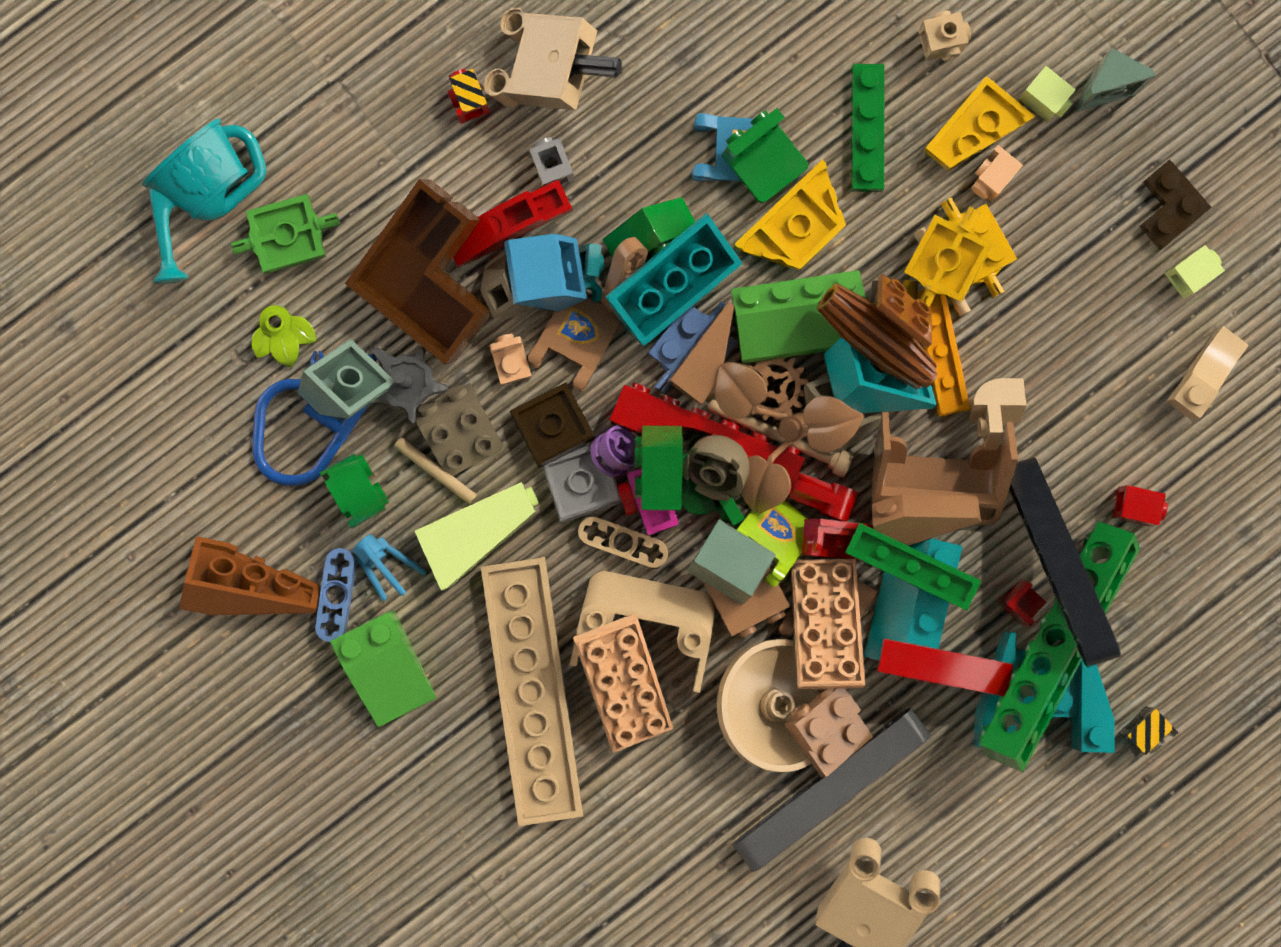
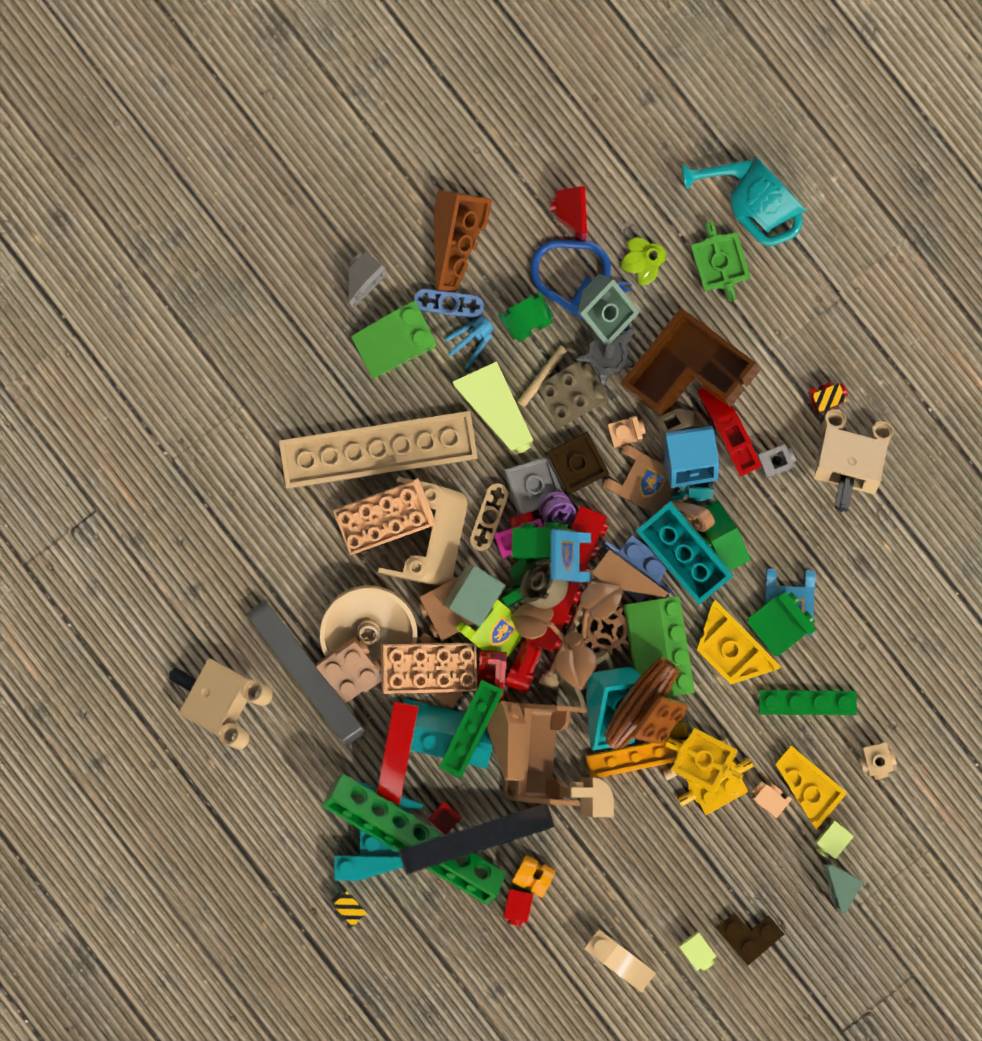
camera: 85 degrees right, 0 degrees up
(212, 428) = (571, 210): none -> red slope
(297, 709) = (363, 277): none -> light grey slope
(680, 436) = (566, 556): none -> dark azure flag
(1096, 495) = (525, 872): none -> light orange wheel

